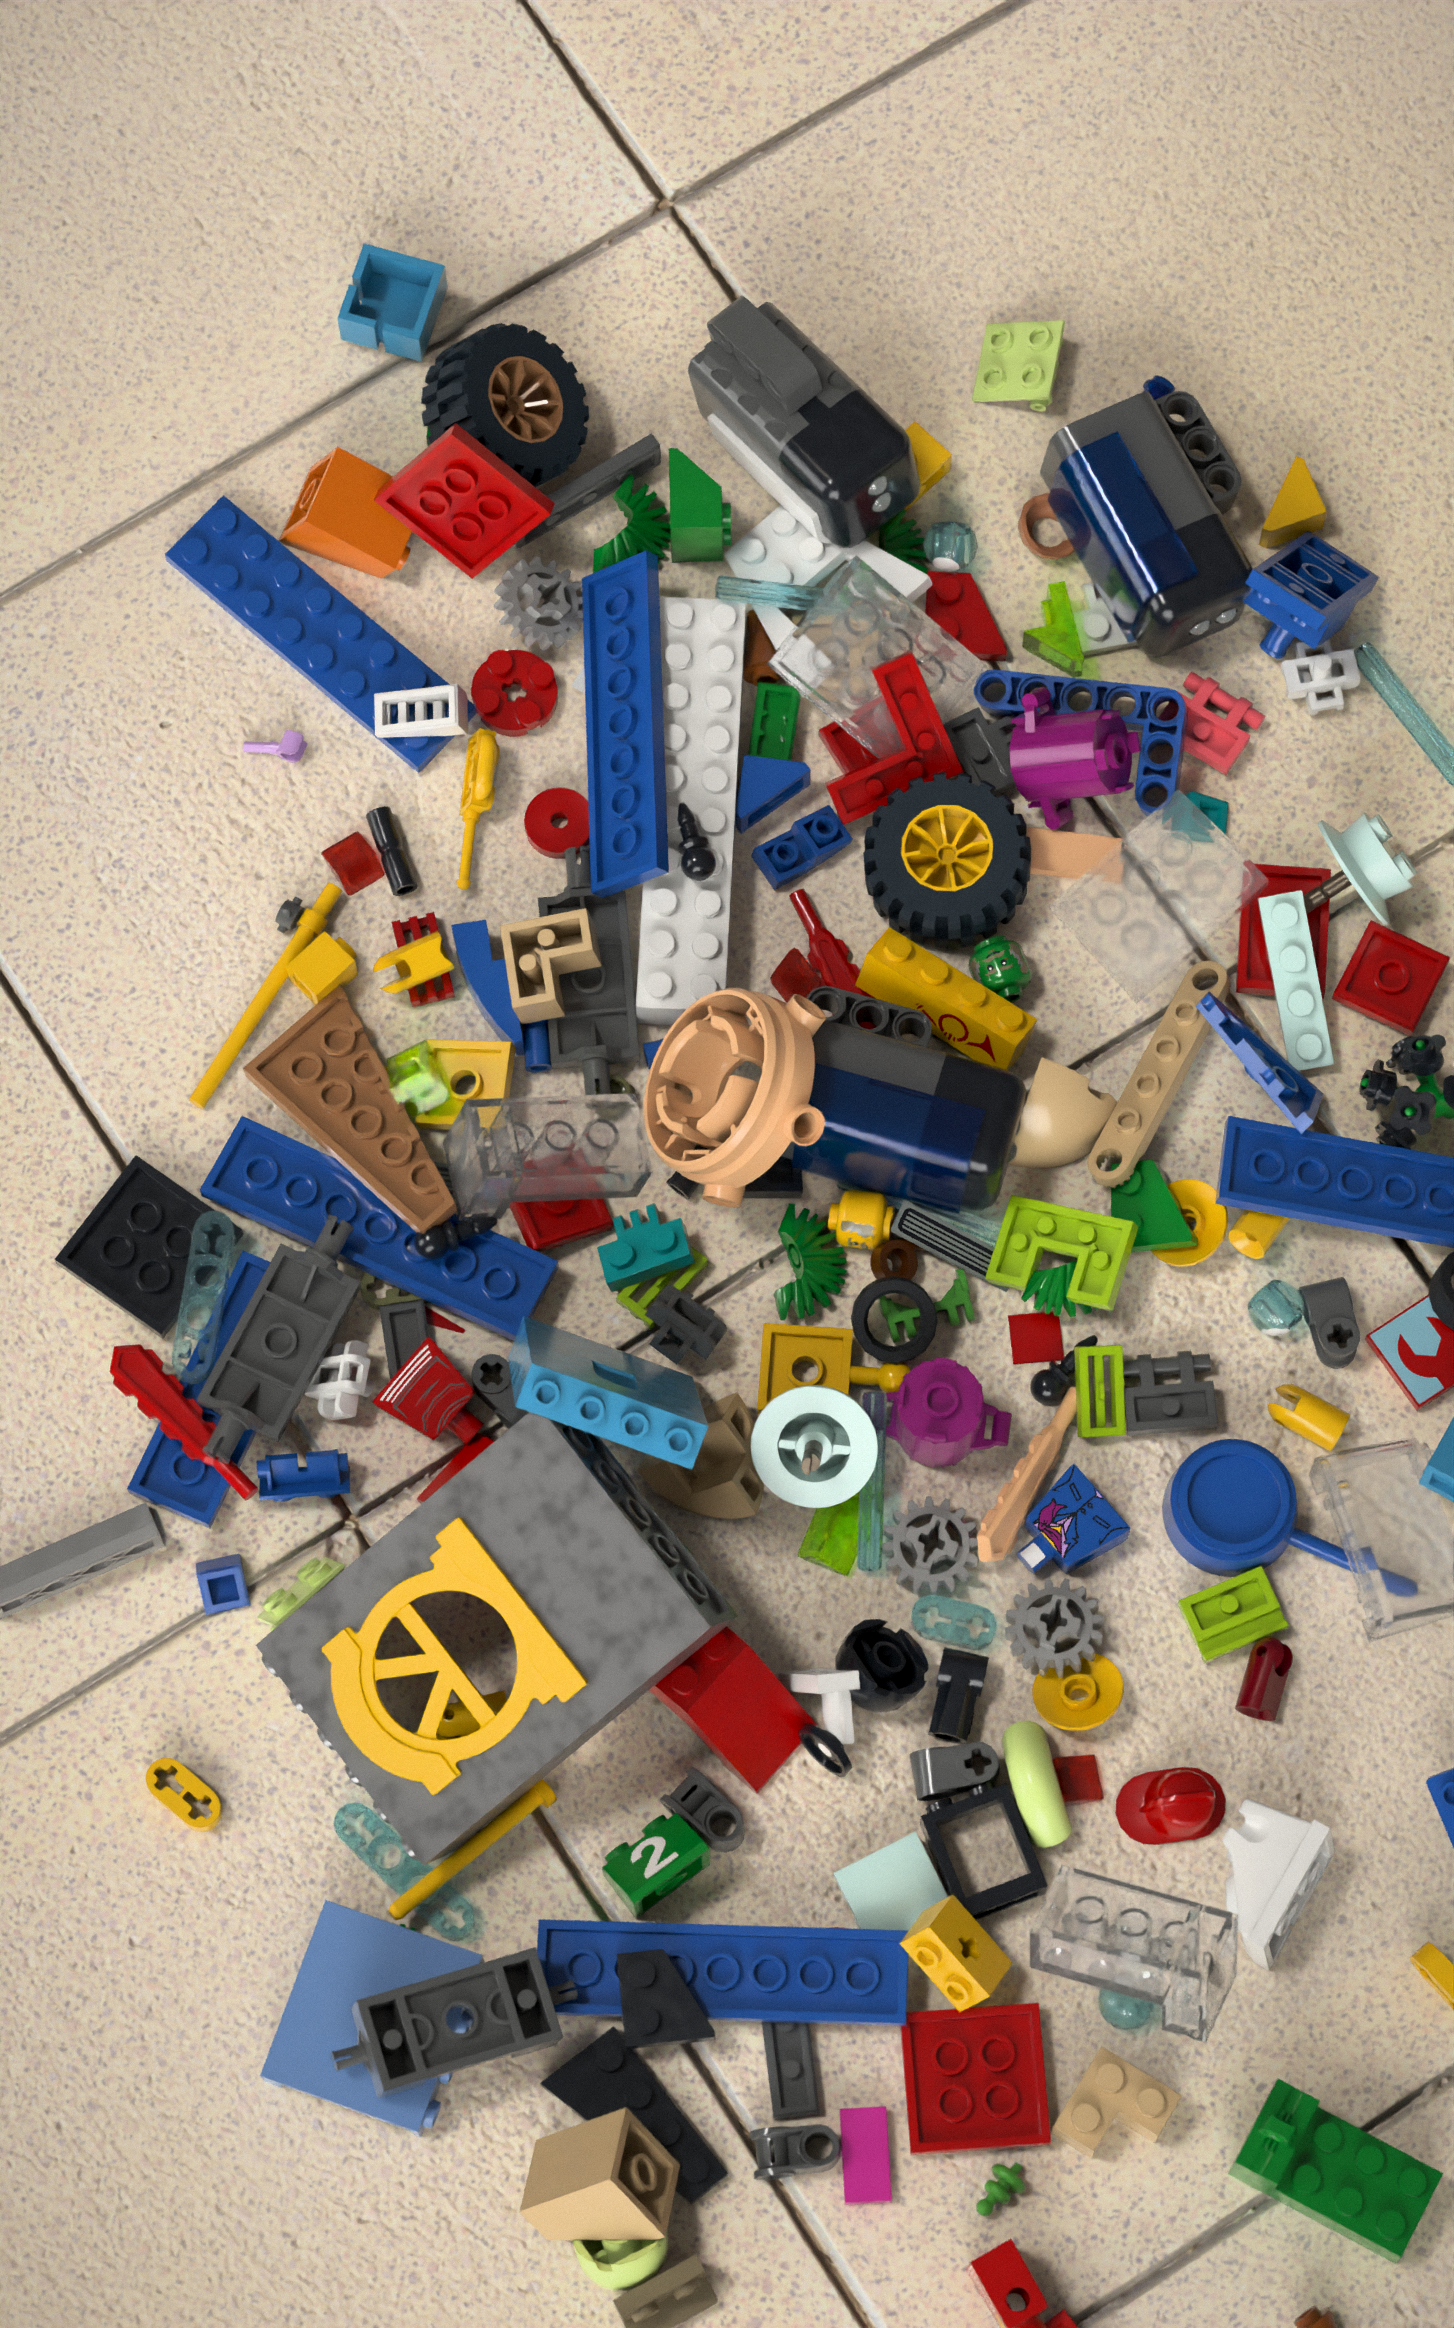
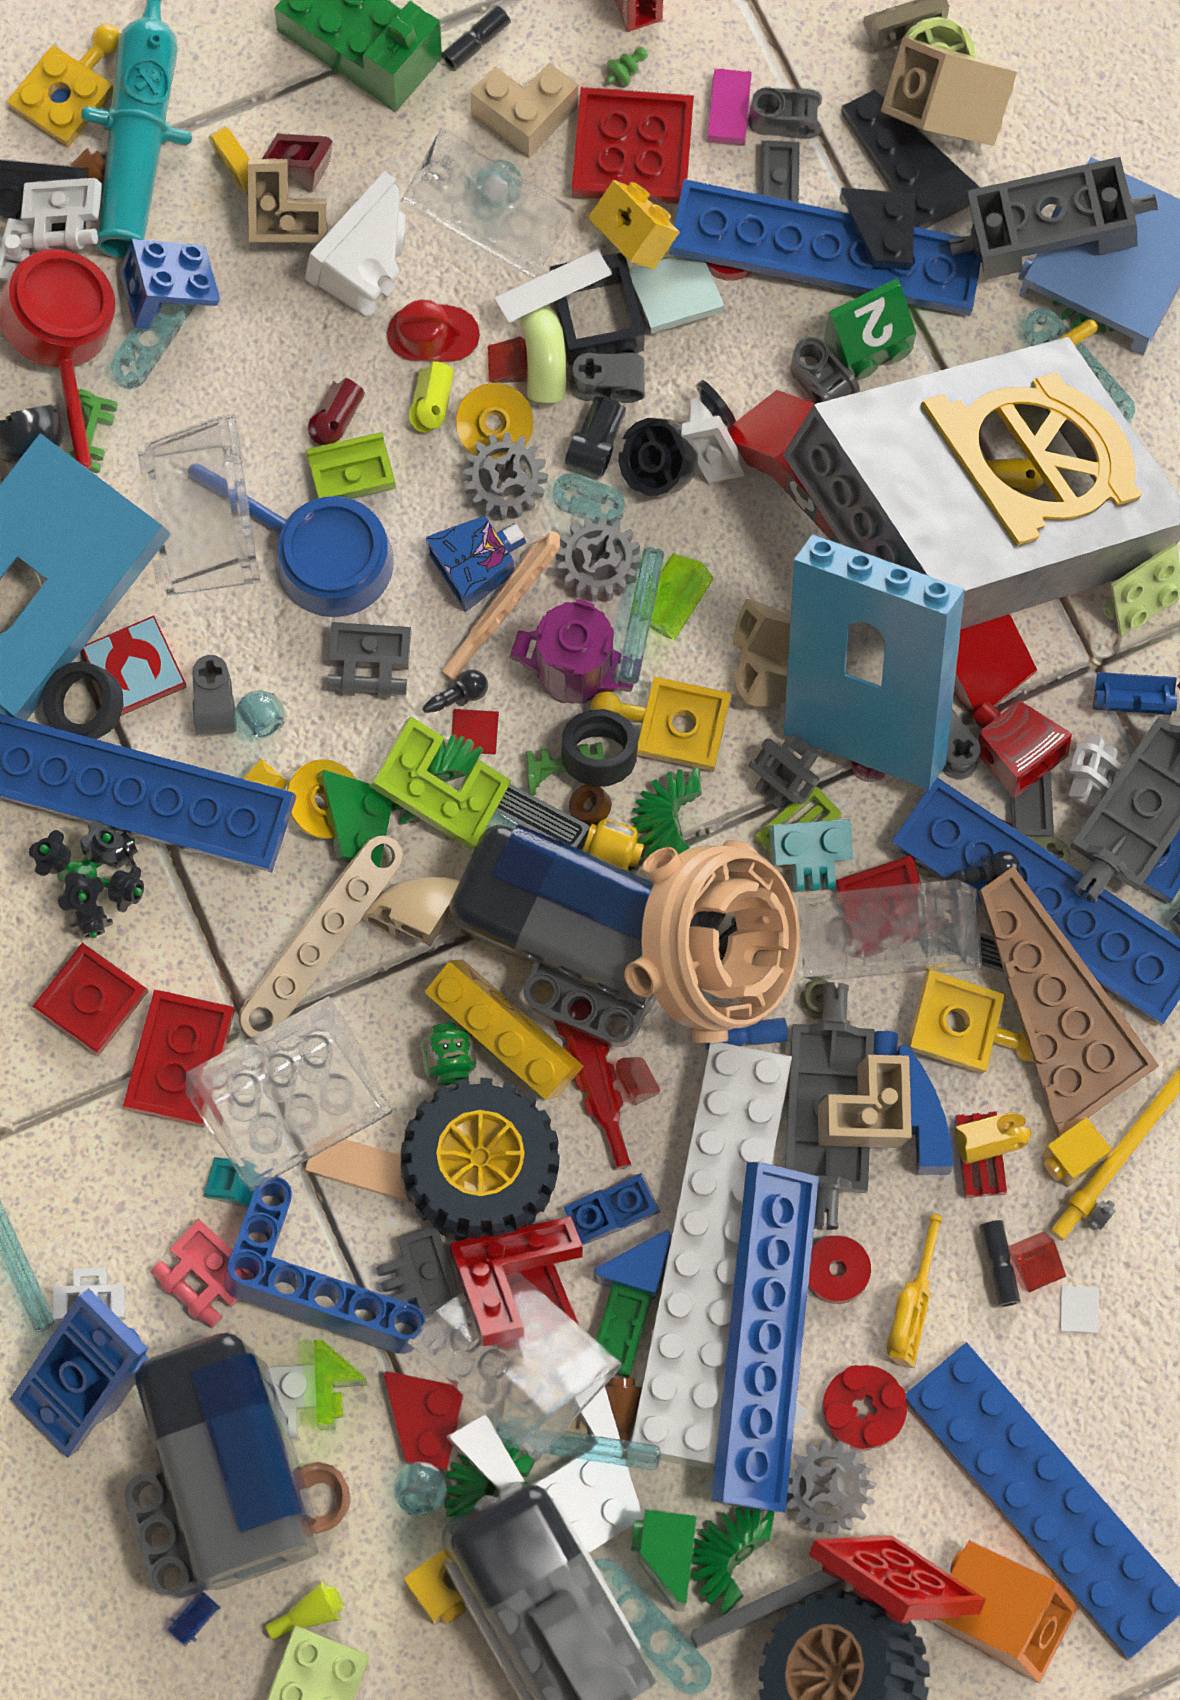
camera: 175 degrees left, 0 degrees up
(290, 748) = (1086, 1383): lavender hand -> none
(303, 824) = (1079, 1309): none -> white sticker
(417, 1079) = (1003, 1025): clear neon green slope -> none
(438, 726) = (924, 1393): white slope -> none
(697, 860) = (716, 1175): black bar -> none
(706, 456) = (657, 1621): none -> clear light blue beam
(814, 1446) = (687, 643): light aqua piece -> none
(1029, 428) = (318, 1607): none -> neon yellow cone
(1038, 1858) = (553, 285): none -> white sticker
(1068, 755) = (346, 1236): magenta container -> none
(1082, 1391) = (427, 689): lime tile -> none
(1157, 1714) = (431, 397): none -> neon yellow piece
(1194, 2194) = (472, 41): none -> black piece
(1280, 1080) = (215, 911): blue wing -> none
(1295, 508) = (76, 1479): yellow slope -> none
(1295, 980) = (179, 998): light aqua plate -> none
(1311, 1417) = (244, 619): yellow piece -> none
(1366, 864) = (93, 1085): light aqua piece -> none
(1375, 1992) = (306, 156): none -> dark red slope
(1376, 1905) = (273, 214): none -> tan brick

